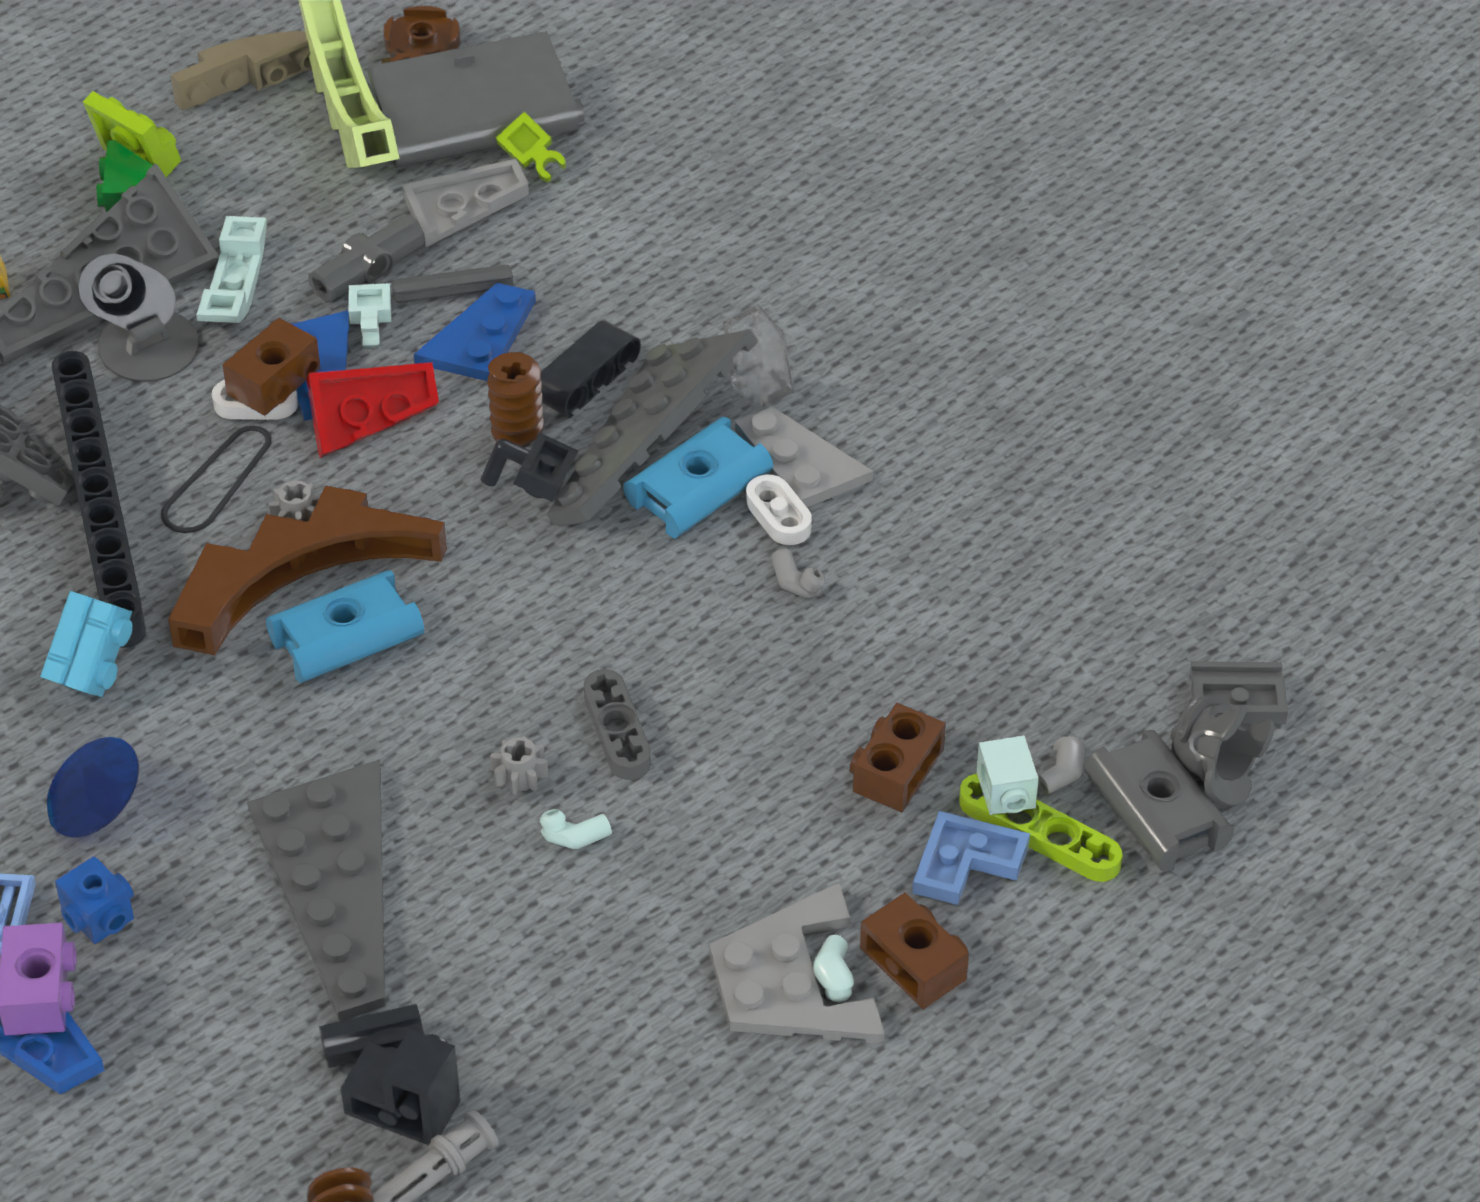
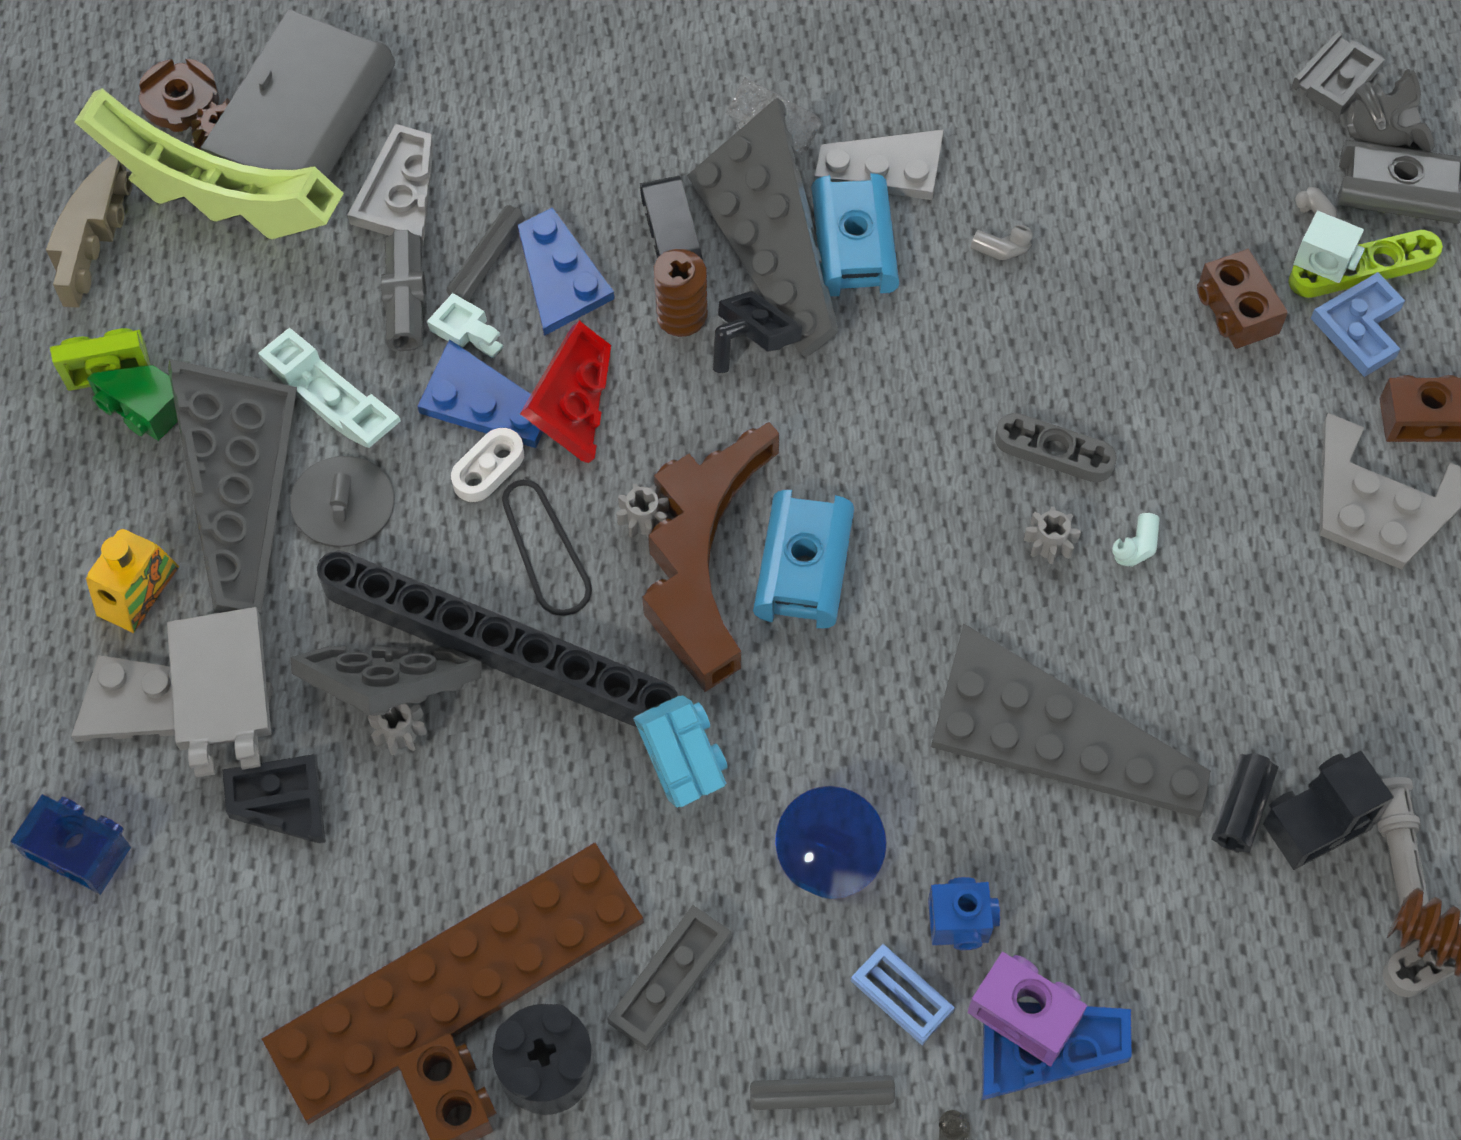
camera: 50 degrees left, 15 degrees up
(125, 291) = (293, 476): piece -> none
(271, 366) = (491, 450): reddish brown brick -> none
(529, 144) = (387, 105): lime plate -> none
(784, 517) = (930, 207): white plate -> none
(832, 970) = (1405, 470): light aqua arm -> none

